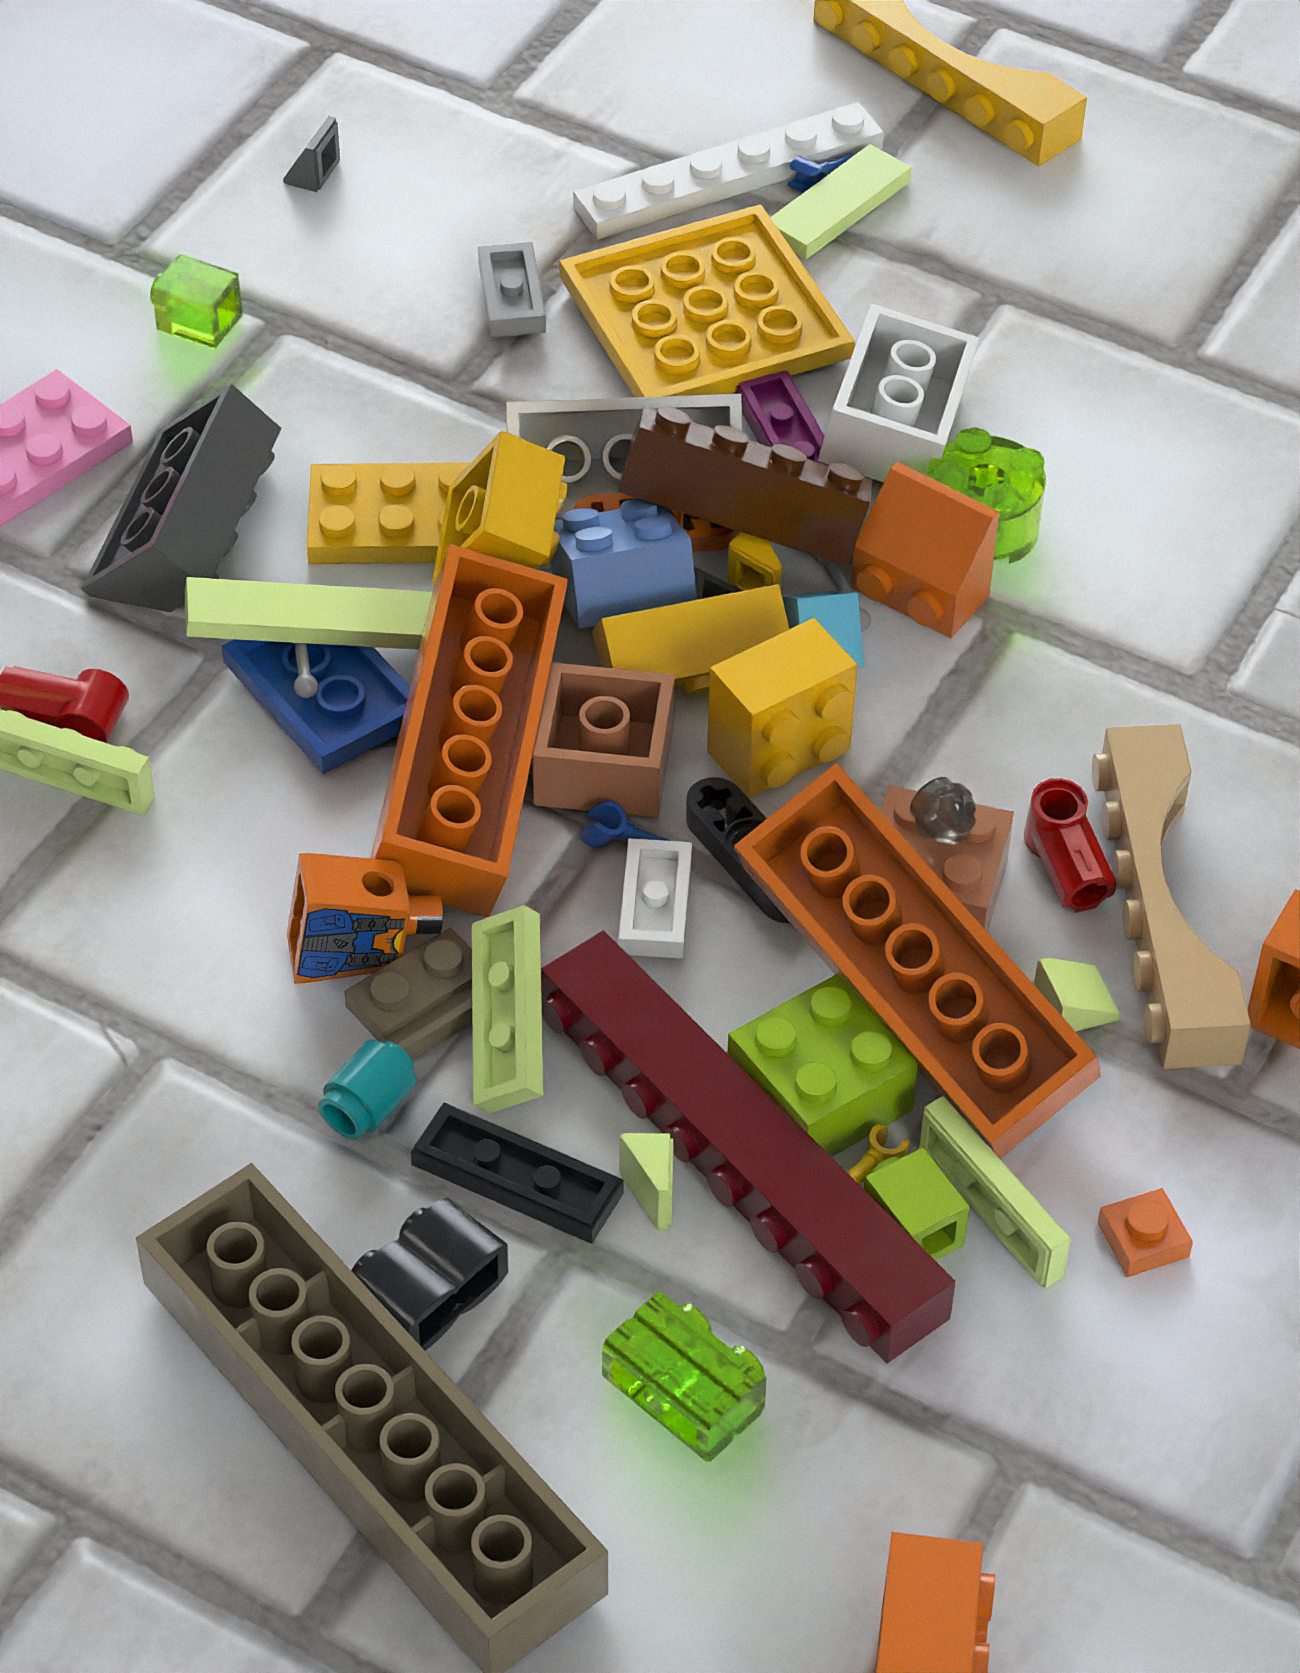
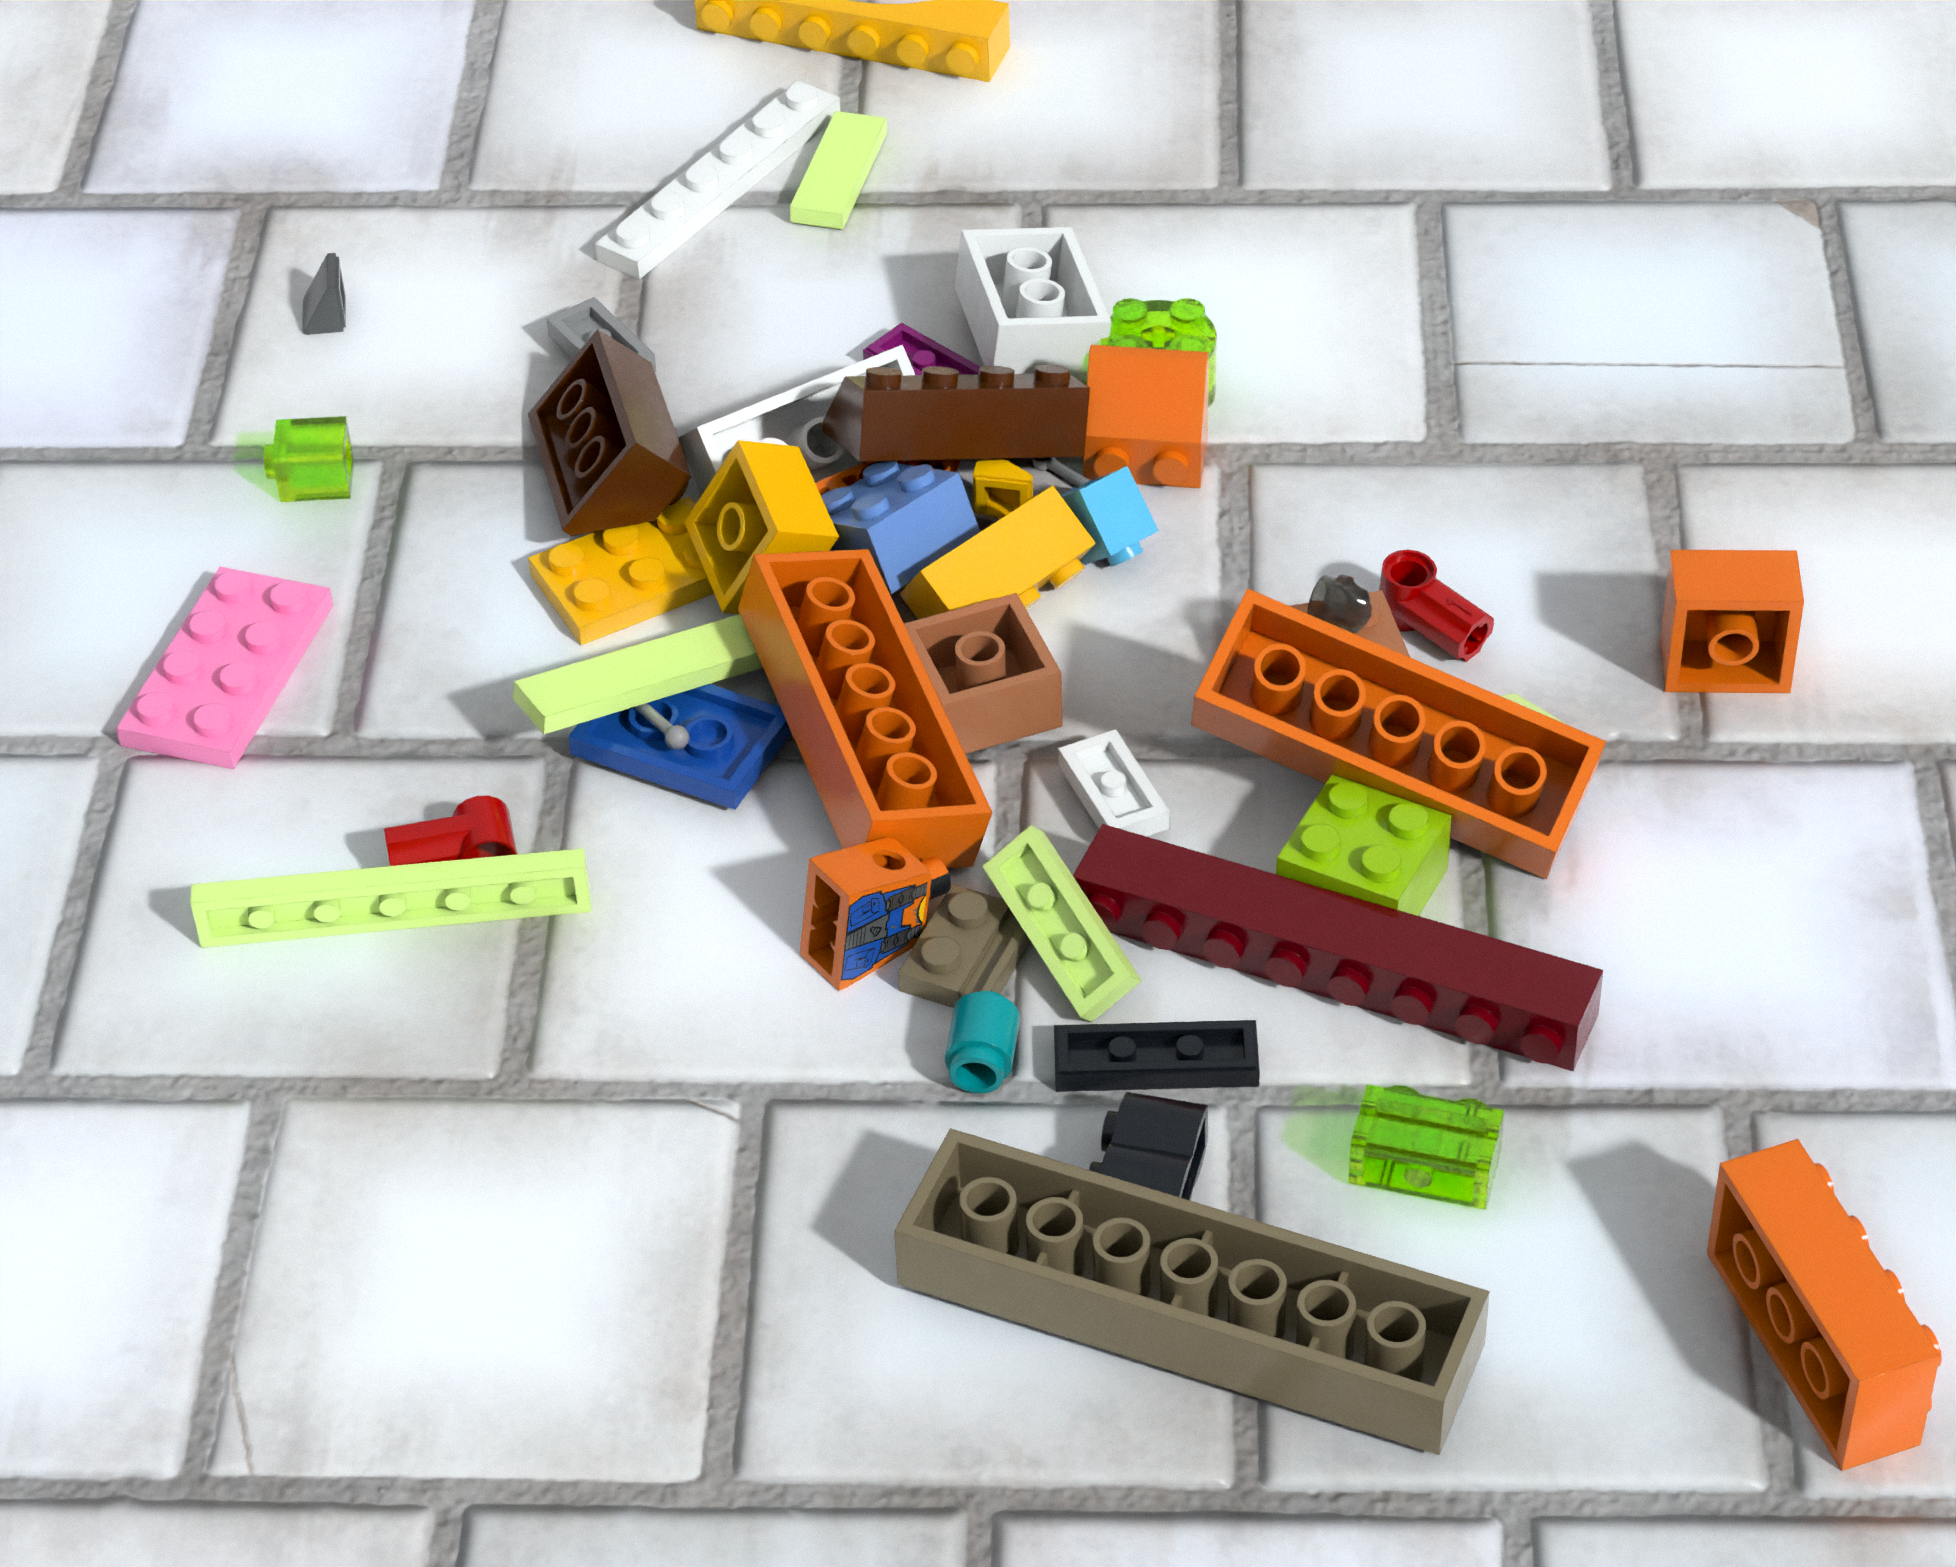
camera: 25 degrees left, 5 degrees down
(185, 503) = (435, 634): dark grey slope -> none
(445, 383) = (608, 440): none -> reddish brown slope
(612, 826) = (1027, 746): blue hand -> none
(648, 1172) = (1279, 1004): yellowish green slope -> none
(706, 307) = (789, 296): yellow plate -> none
(710, 830) = (1124, 703): black beam -> none
(781, 707) = (1120, 588): yellow brick -> none
(811, 173) = (798, 155): blue hand -> none
(877, 1153) = (1455, 912): yellow hand -> none
(921, 1201) = (1522, 920): lime brick -> none
(995, 1193) = (1572, 896): yellowish green tile -> none
(1144, 1232) = (1707, 879): orange plate -> none
(1192, 993) = (1614, 679): tan arch -> none

